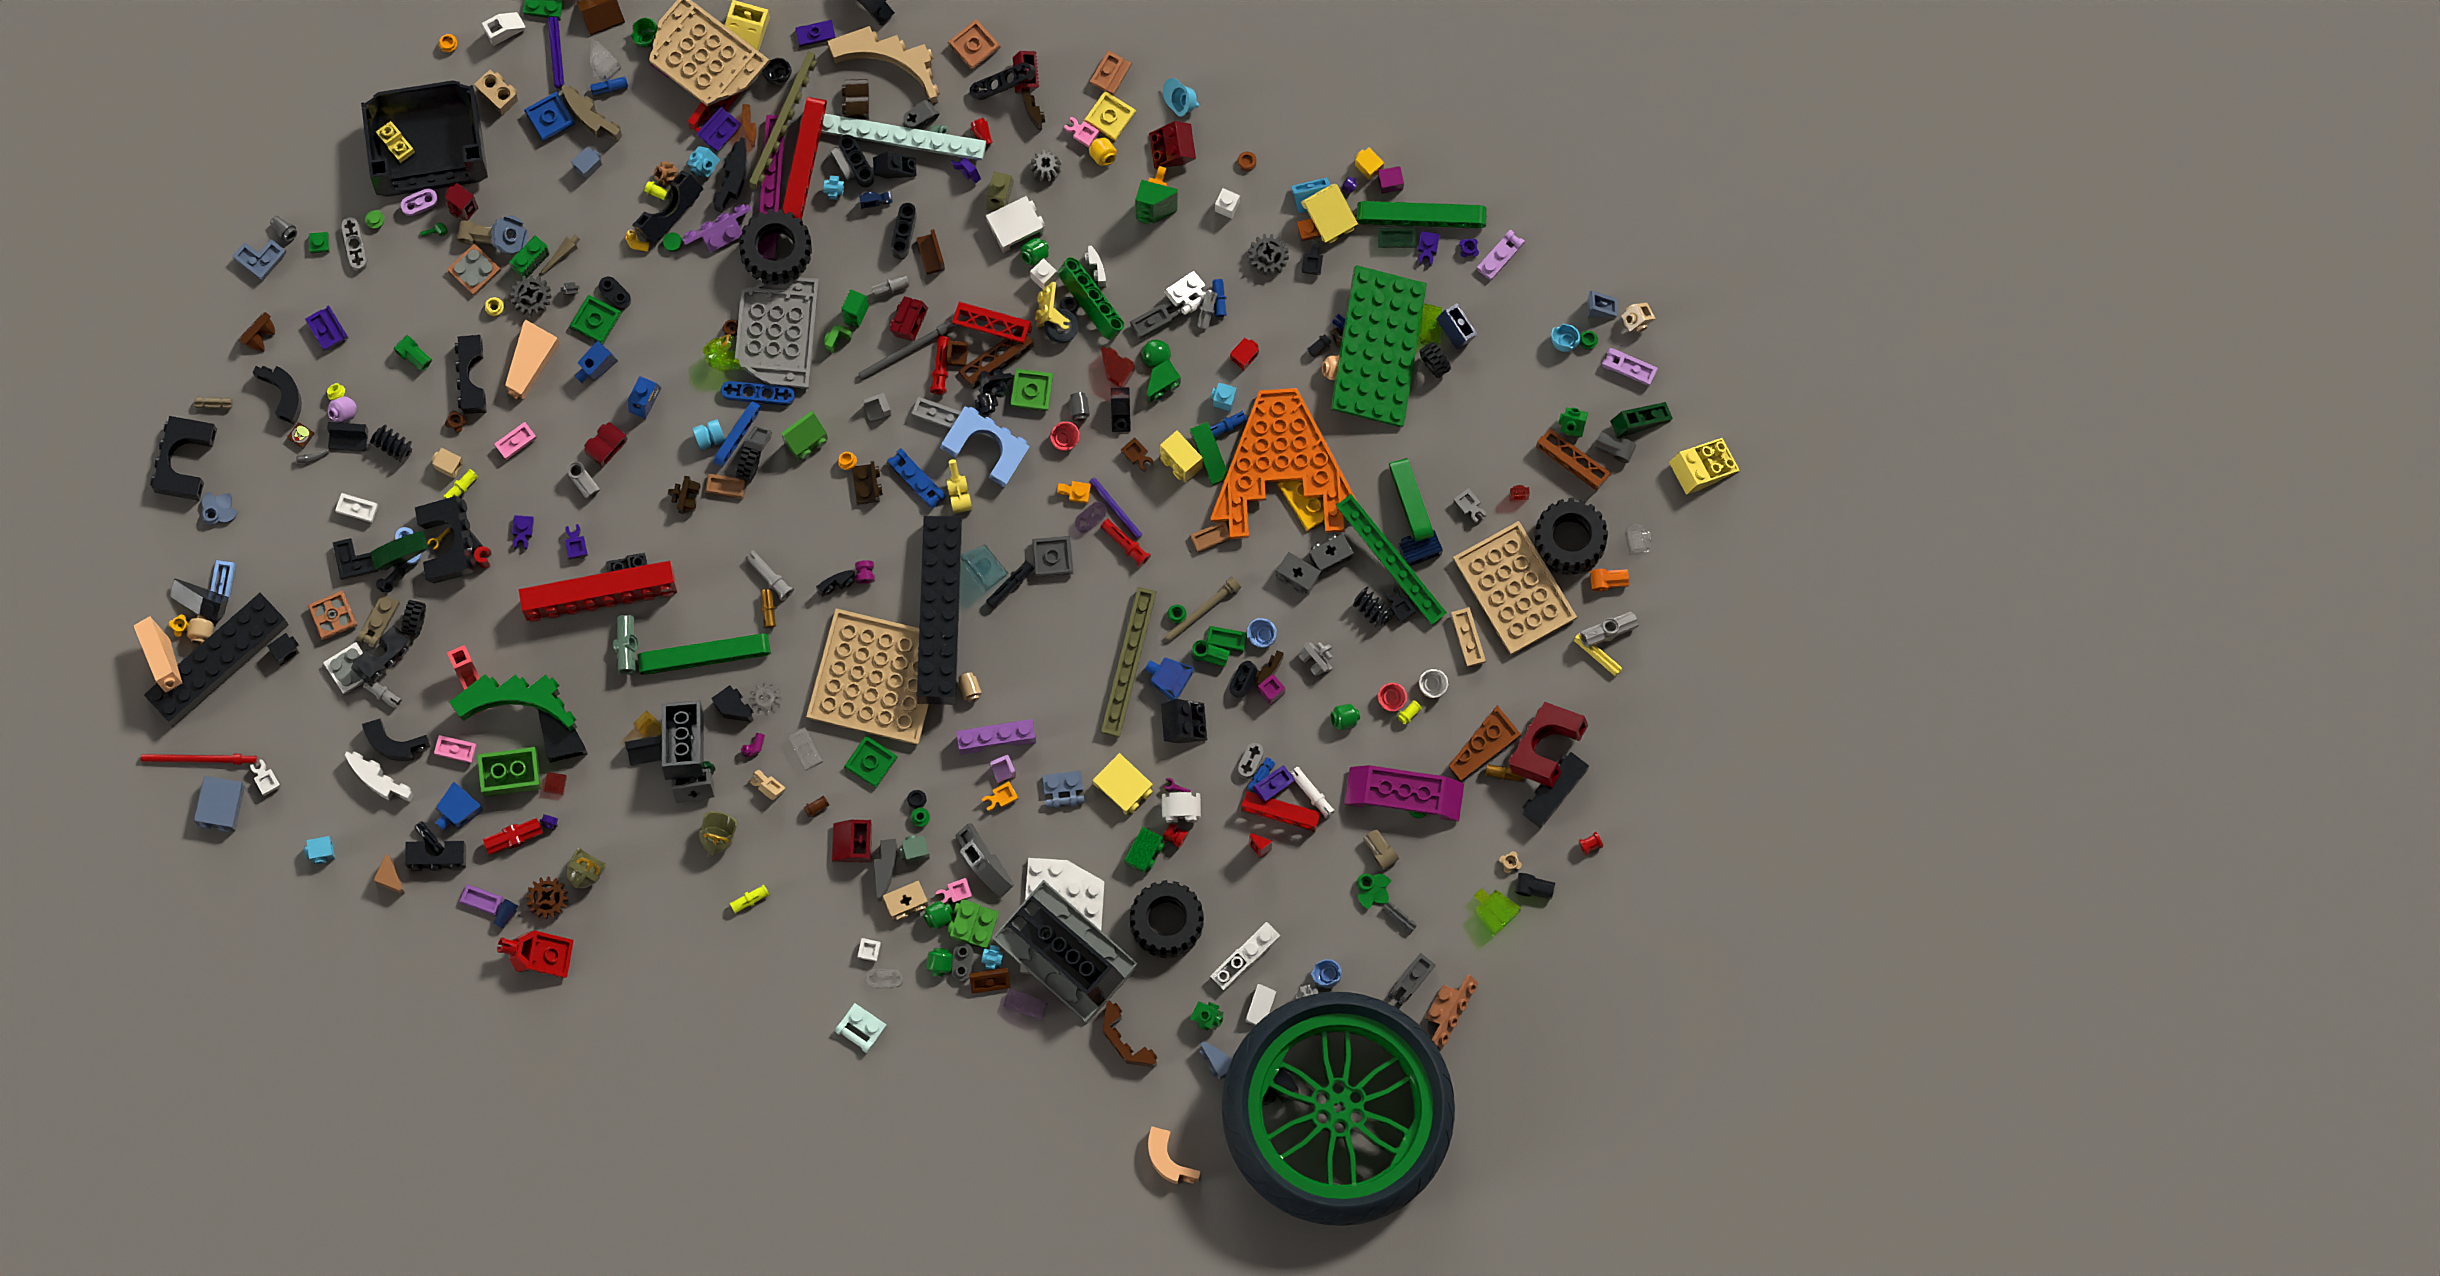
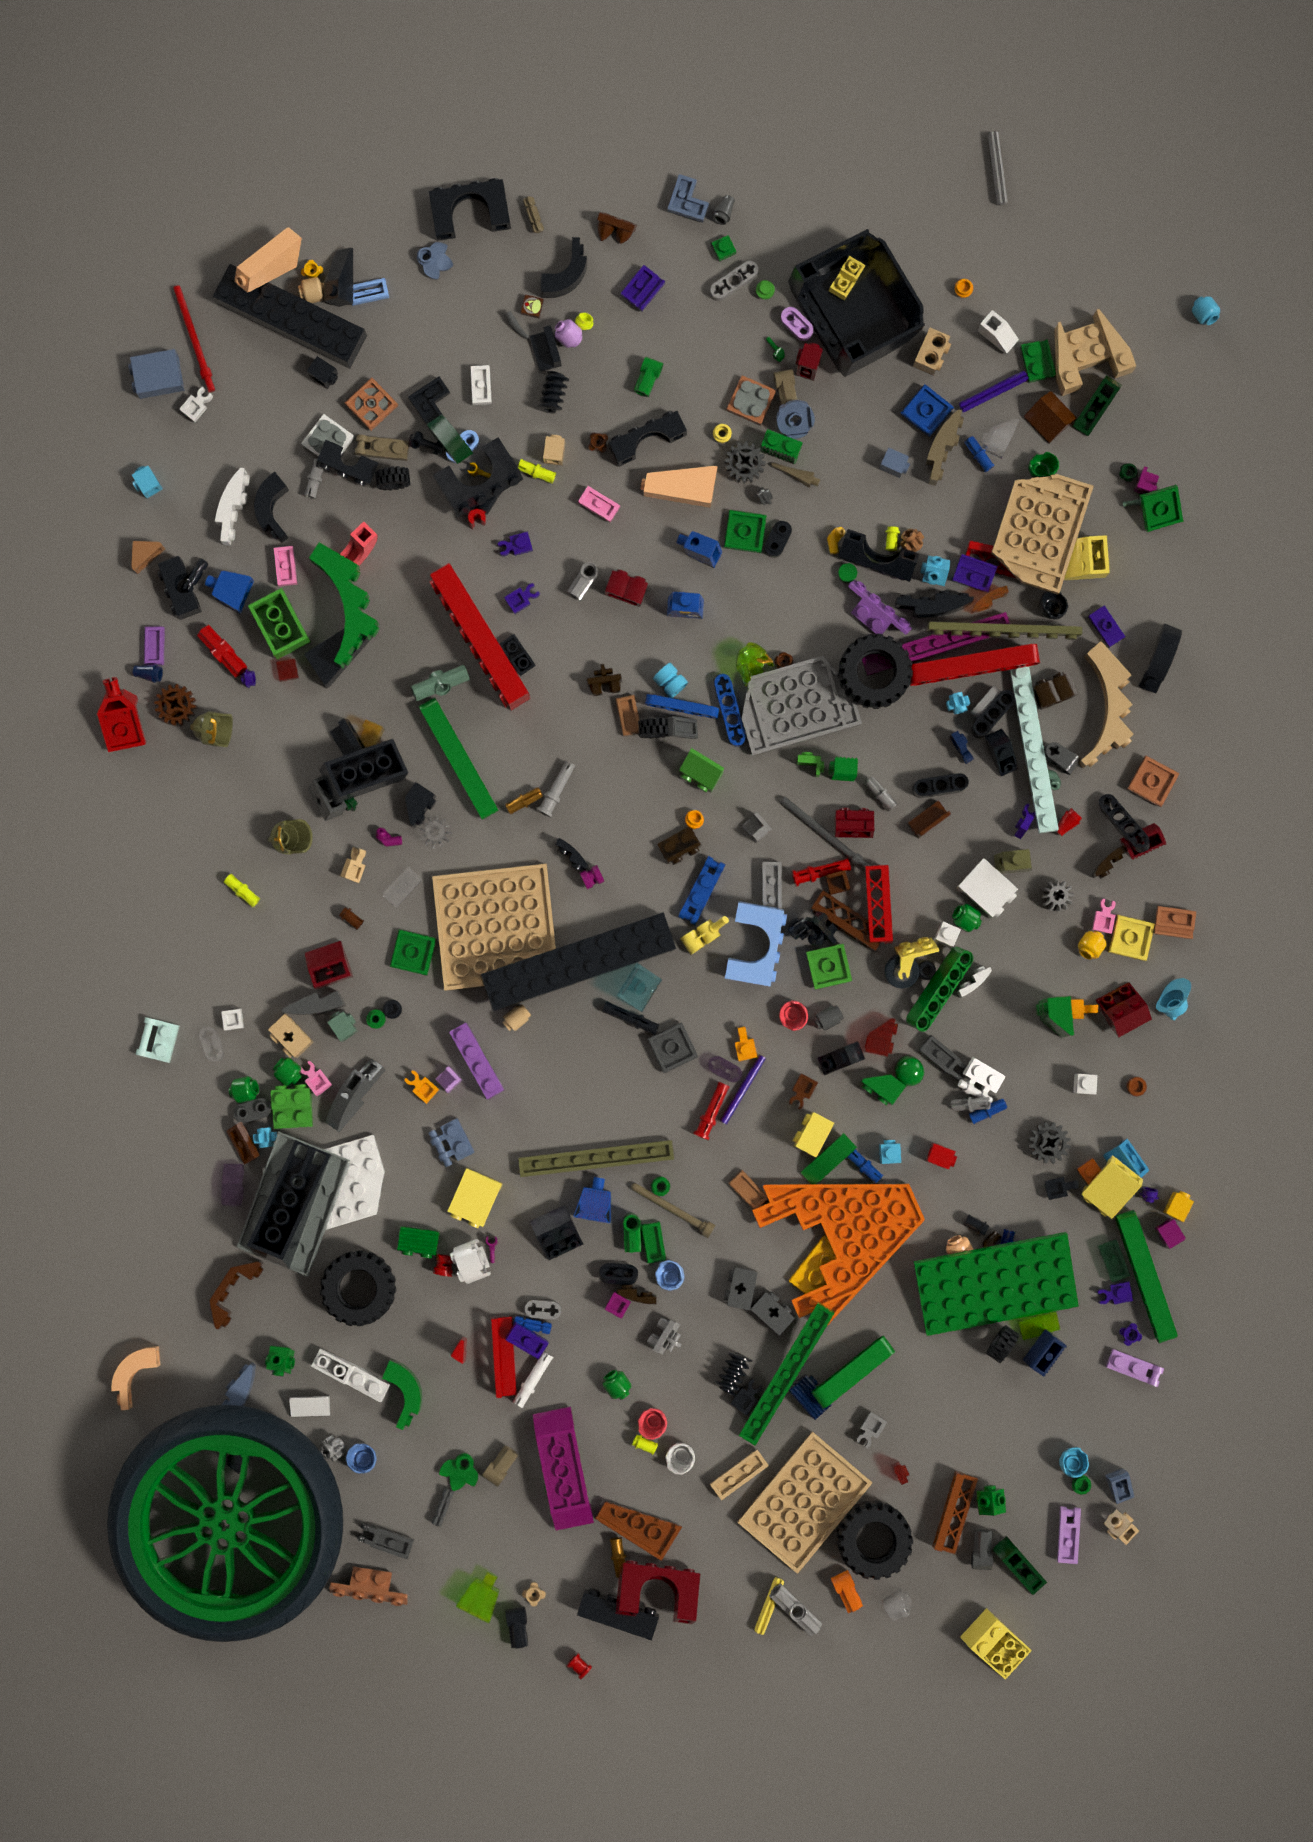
camera: 70 degrees right, 10 degrees up
(1279, 906) = (408, 1383): none -> green arch

